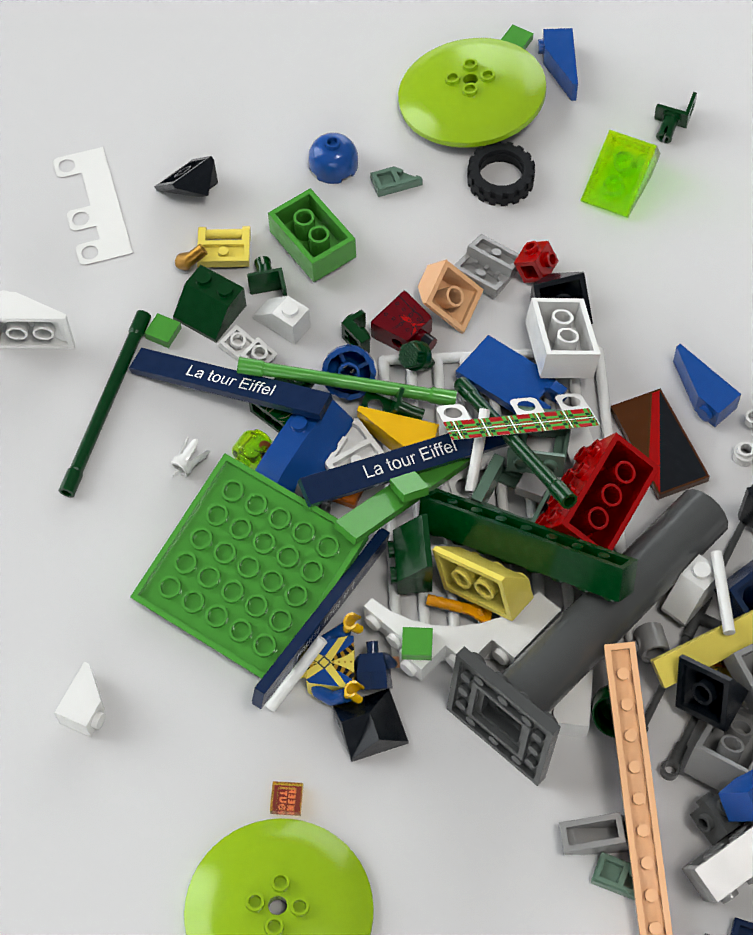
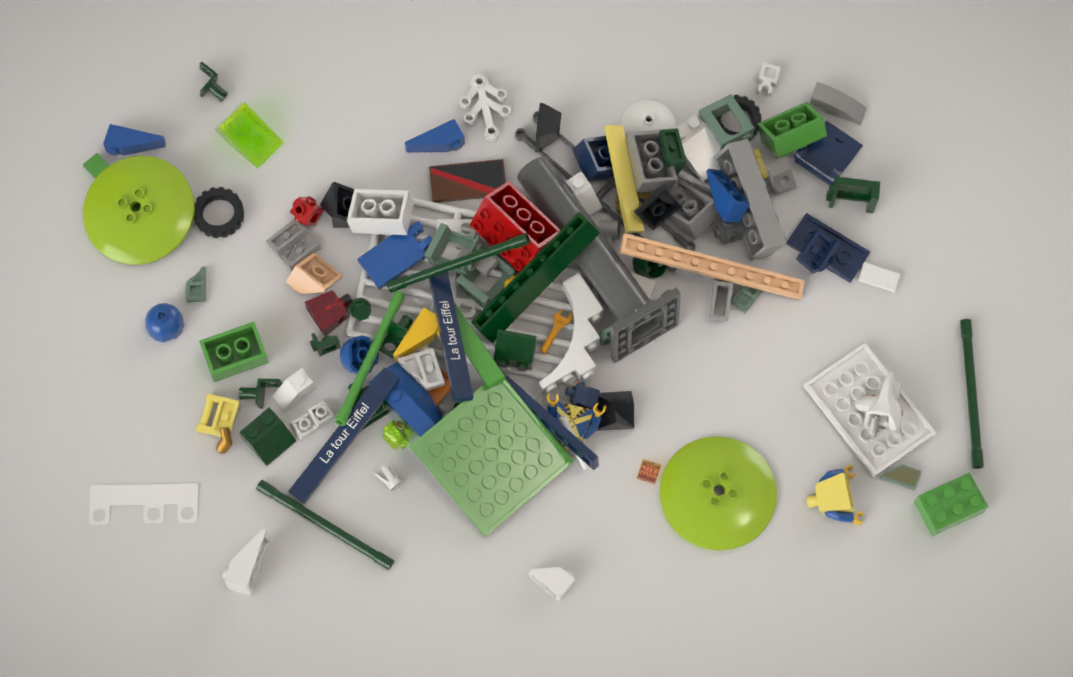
camera: 80 degrees left, 10 degrees up
(163, 330) = (276, 474): bright green tile -> none
(191, 179) = (149, 426): black slope -> none
(409, 487) = (471, 336): bright green tile -> none
(417, 643) = (579, 362): bright green tile -> none
(476, 457) = (451, 288): white bar -> none
(483, 581) = (548, 311): light yellow slope -> none
(523, 422) = (446, 254): piece -> none
(722, 592) = (598, 175): white bar -> none

